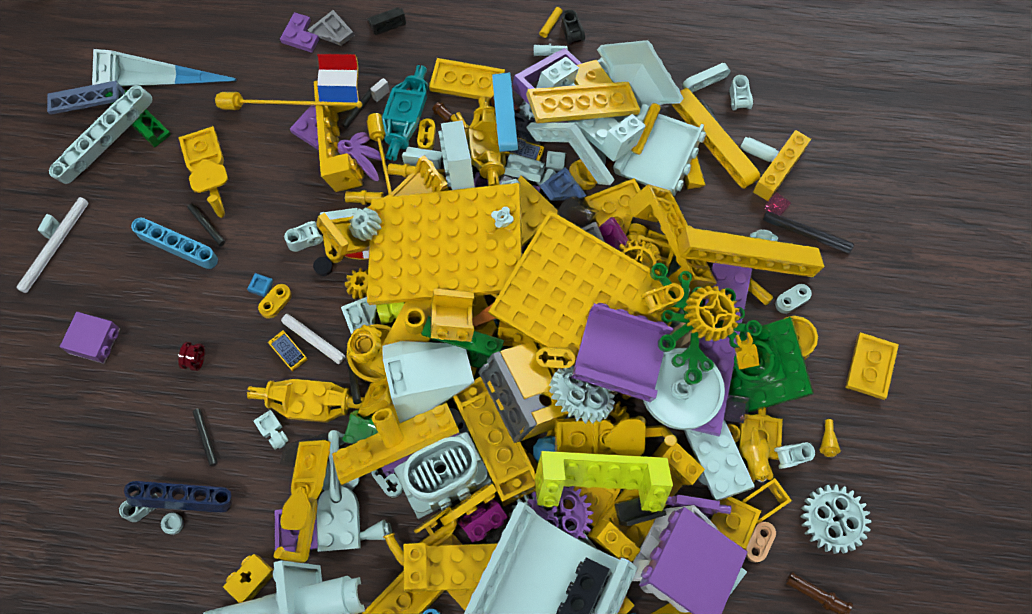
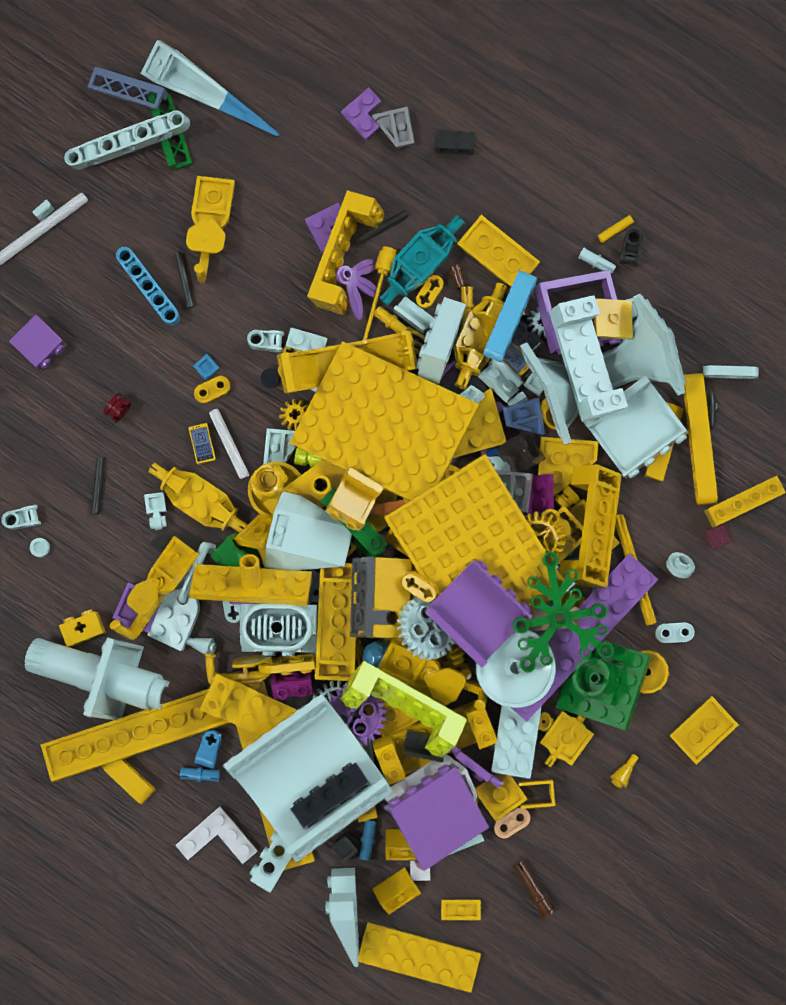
camera: 35 degrees right, 15 degrees up
(169, 491) = (44, 530): dark blue beam -> none
(335, 85) = (365, 206): flag -> none
(354, 385) = (243, 509): pearl dark grey bar -> none
(362, 197) = (339, 328): yellow pin -> none
(365, 224) = (322, 368): light aqua gear -> none
(380, 89) = (409, 221): white tile -> none
(502, 222) = (448, 437): light aqua plate -> none
(582, 102) = (584, 350): yellow plate -> none
(649, 122) = (638, 398): yellow axle -> none
(659, 298) = (535, 586): yellow piece -> none
(702, 319) = (577, 615): yellow gear -> none
(736, 409) = (556, 706): brick -> none
(740, 96) = (752, 410): light aqua piece -> none
(746, 353) = (586, 667): yellow plate -> none
(749, 252) = (652, 576): yellow brick -> none
(756, 454) = (549, 753): yellow animal -> none
(759, 149) = (735, 473): light aqua piece -> none
(794, 454) = (580, 768): light aqua piece -> none
(808, 231) = (729, 578): black axle -> none
(851, 510) = (604, 839): light aqua gear -> none

